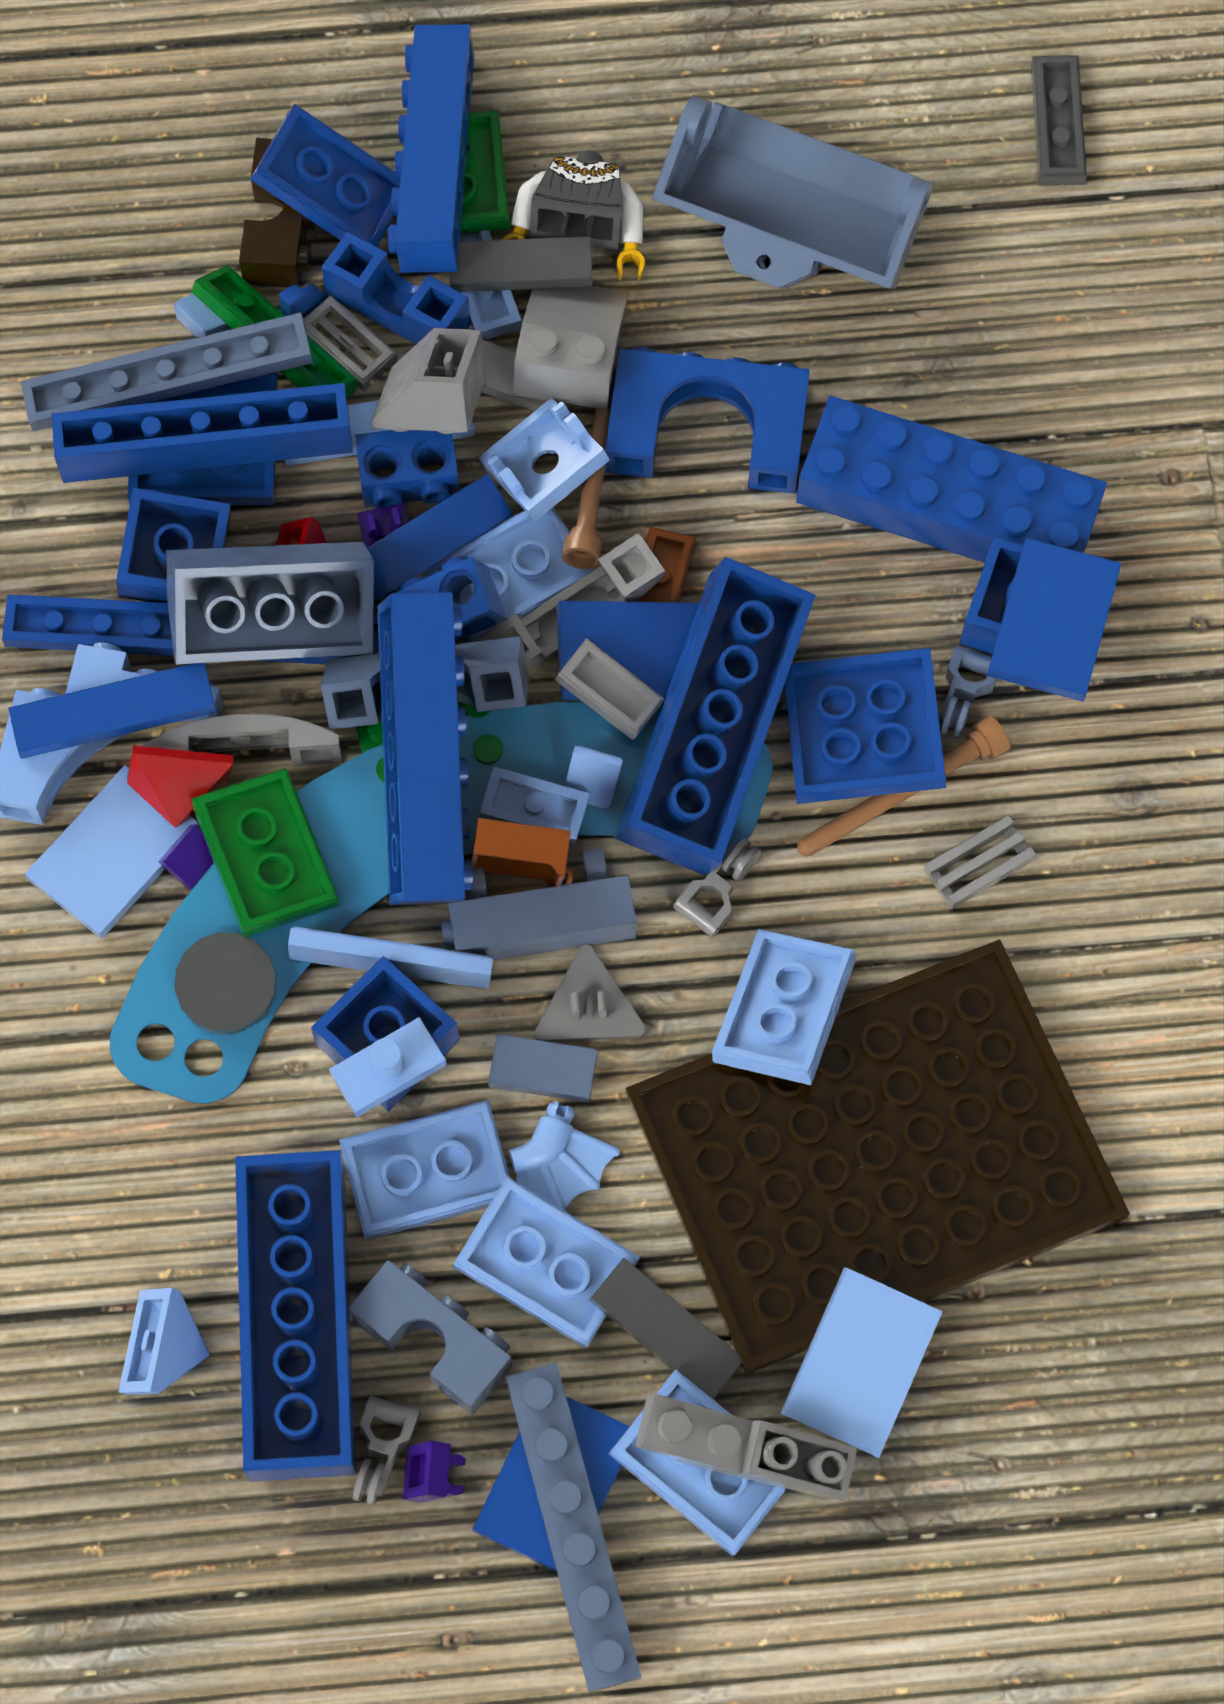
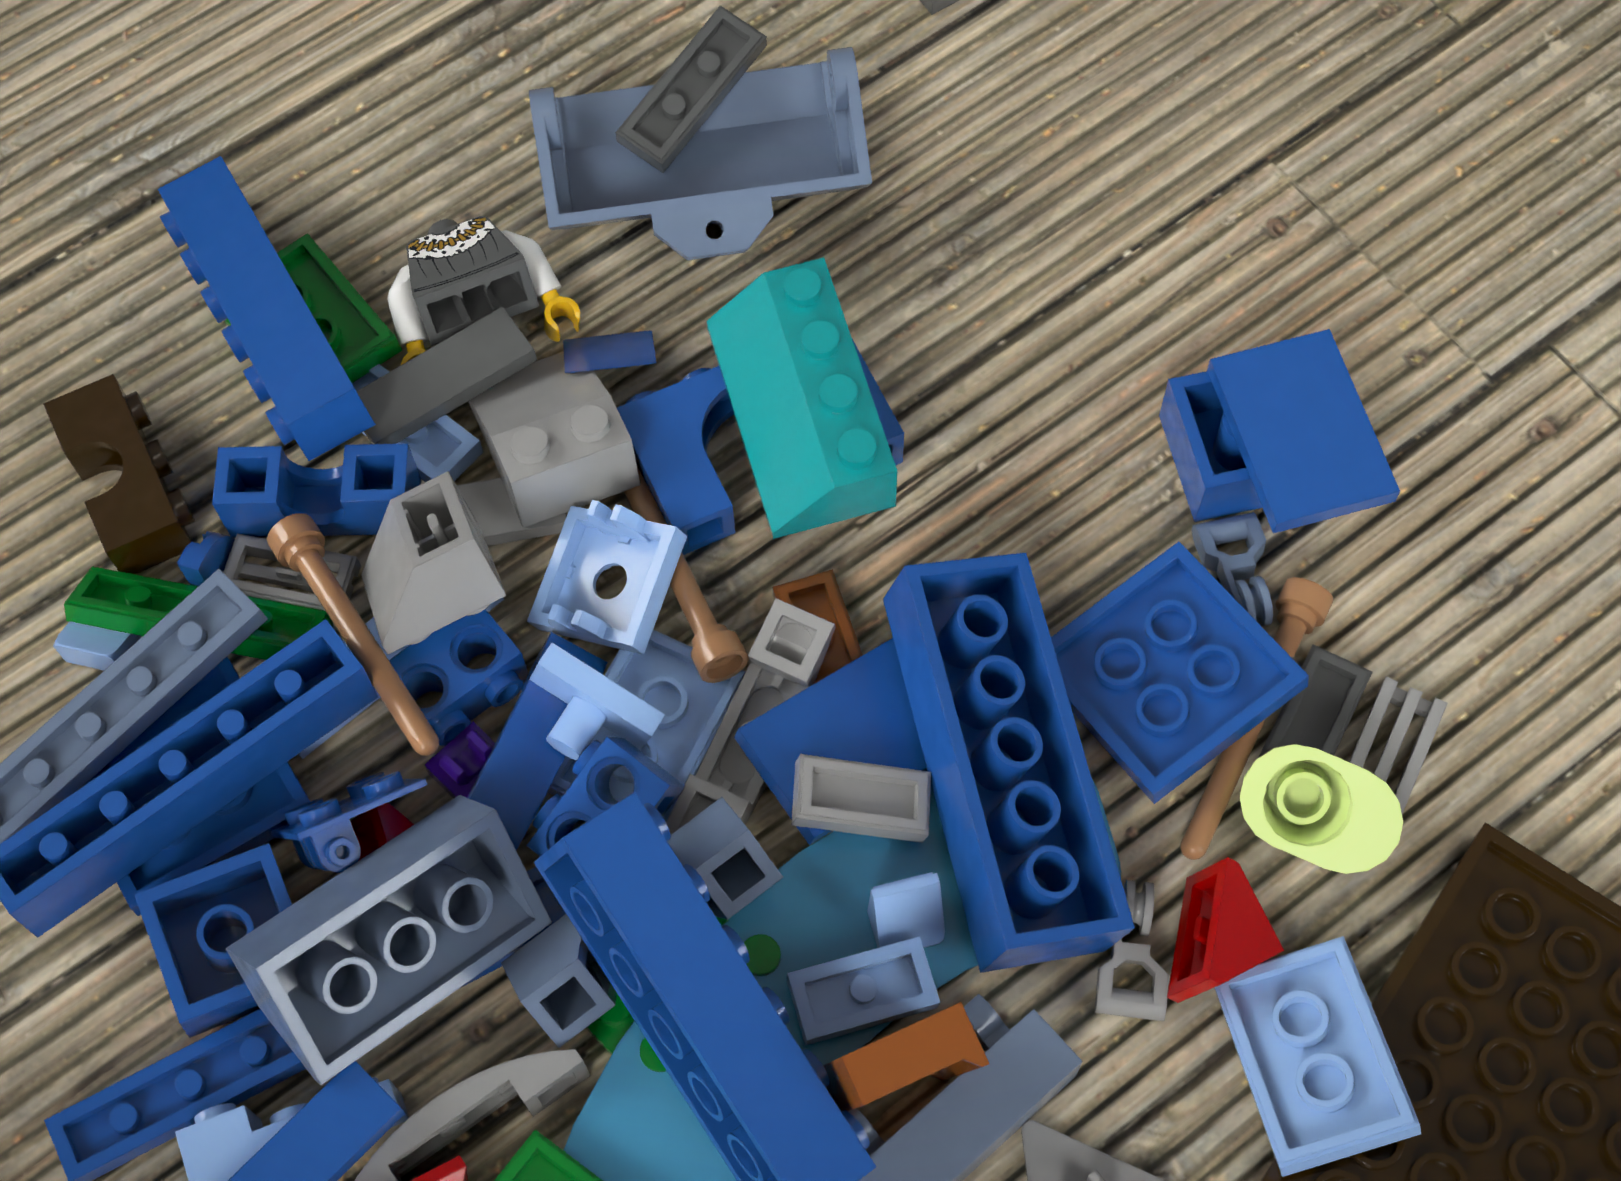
camera: 30 degrees left, 5 degrees down
(268, 513) = (323, 829): none -> blue hinge
(327, 178) = (156, 403): blue tile -> none
(362, 325) = (300, 546): none -> medium nougat piece
(478, 532) = (591, 703): none -> light blue tile
(645, 306) = (609, 351): none -> blue sticker
(740, 412) = (802, 401): none -> teal slope
(782, 905) = (1218, 931): none -> red slope
(819, 149) = (691, 89): none -> dark grey tile
(895, 865) = (1321, 808): none -> yellowish green piece
(941, 485) = (1061, 362): blue brick -> none
(946, 813) = (1324, 708): none -> dark grey tile

